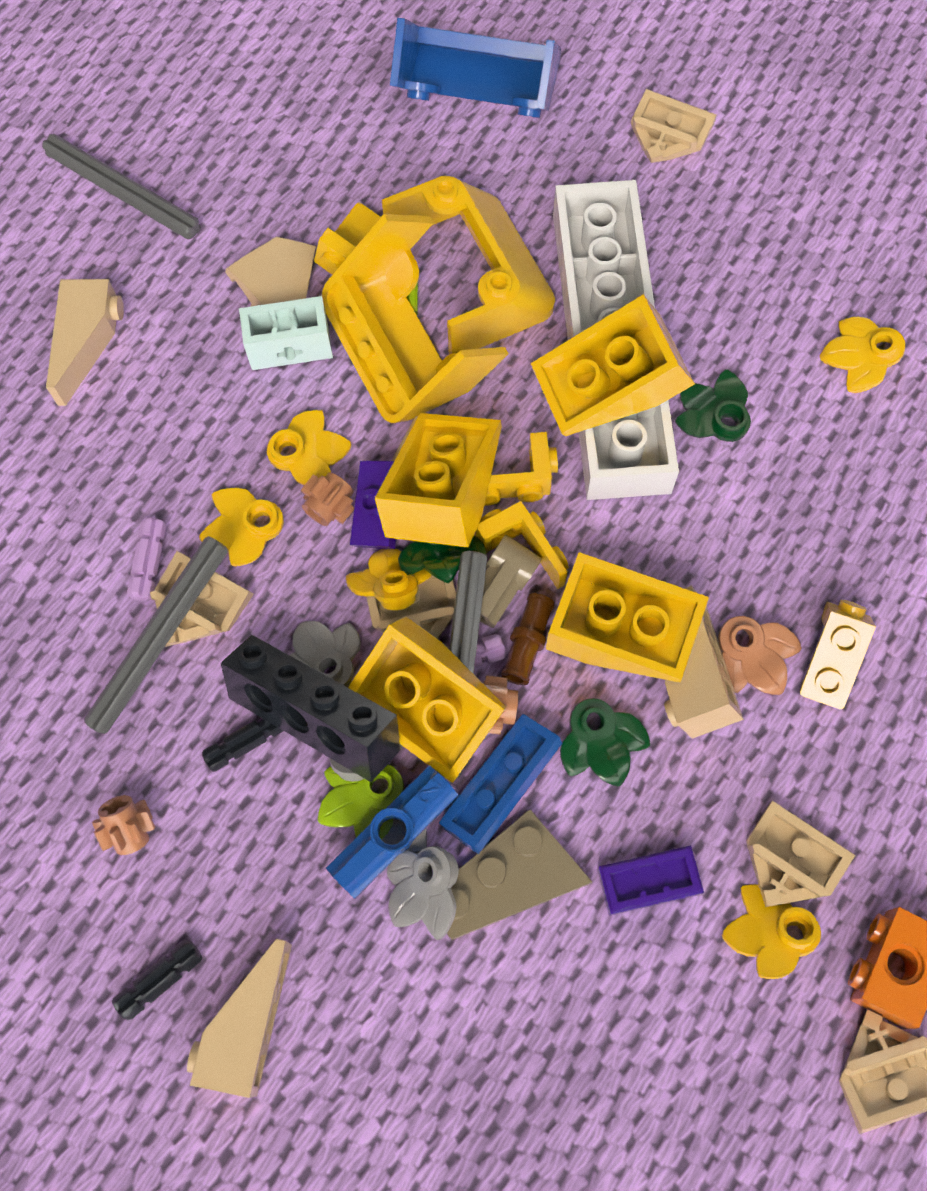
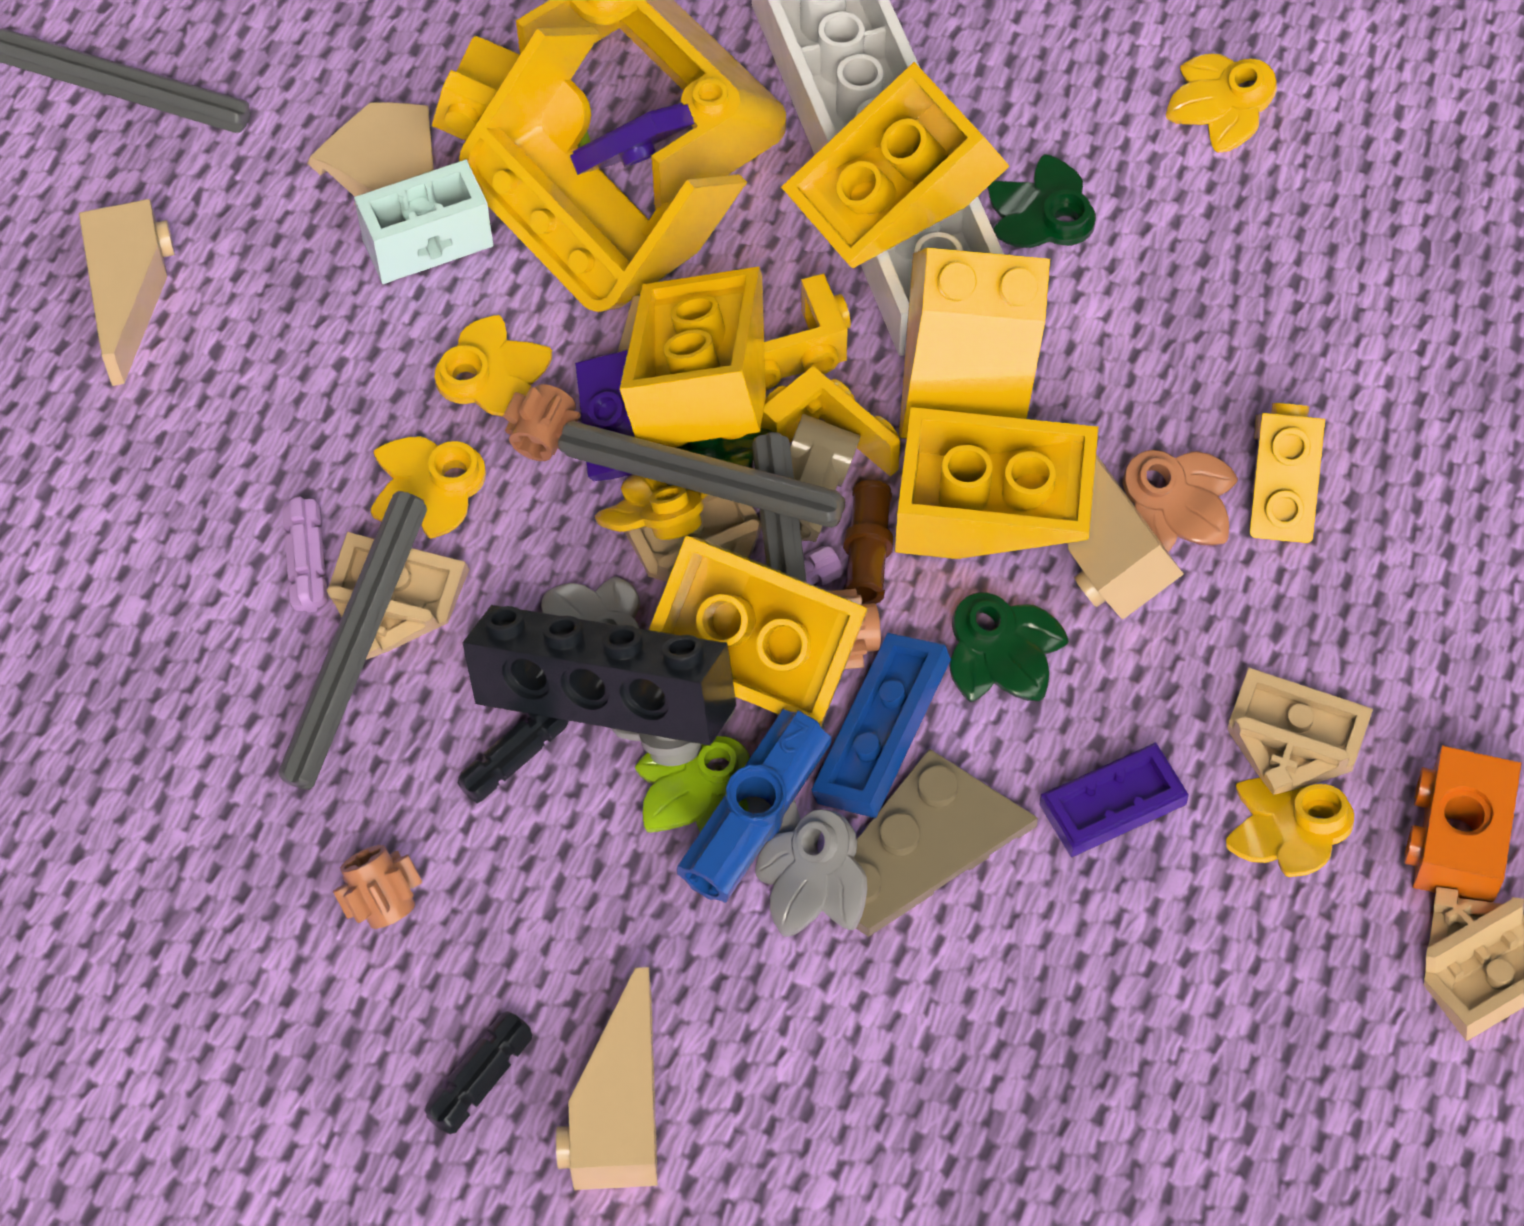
camera: 15 degrees left, 10 degrees down
(421, 572) = (702, 474): none -> dark grey axle
(440, 305) = (633, 140): none -> dark purple plate
(637, 507) = (973, 332): none -> yellow slope

